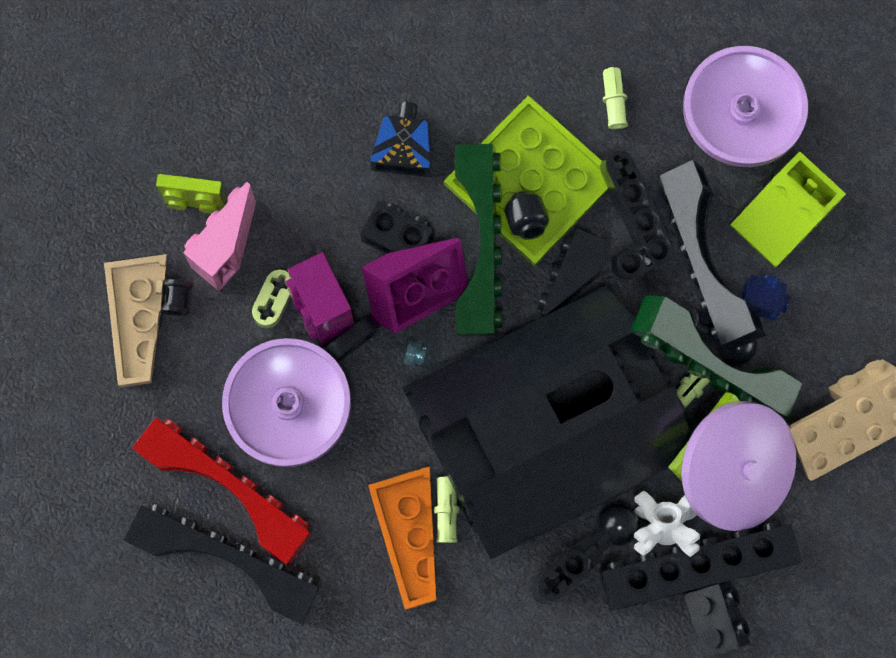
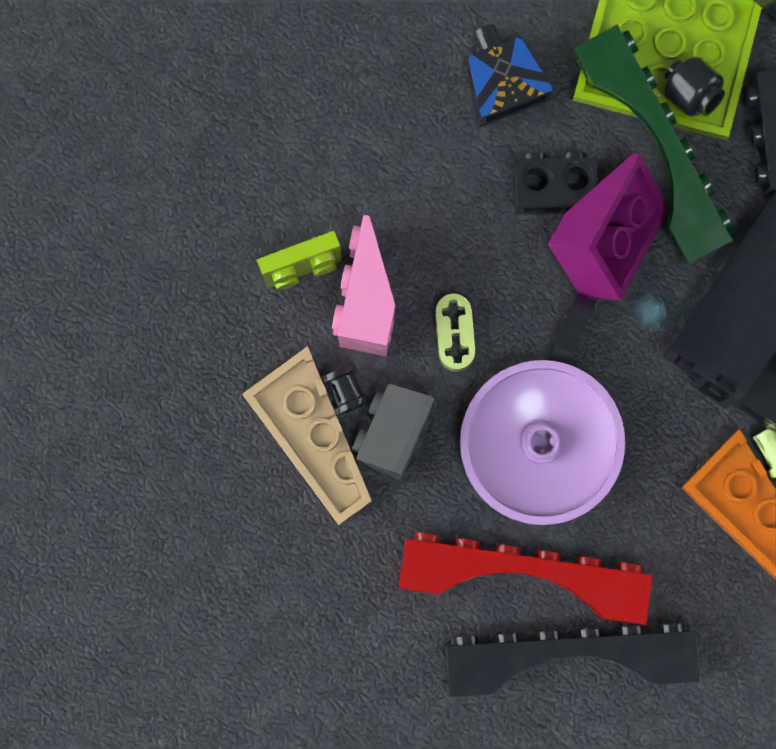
camera: 25 degrees left, 5 degrees up
(191, 342) = (394, 430): none -> dark grey slope
(319, 299) = (521, 305): magenta brick -> none

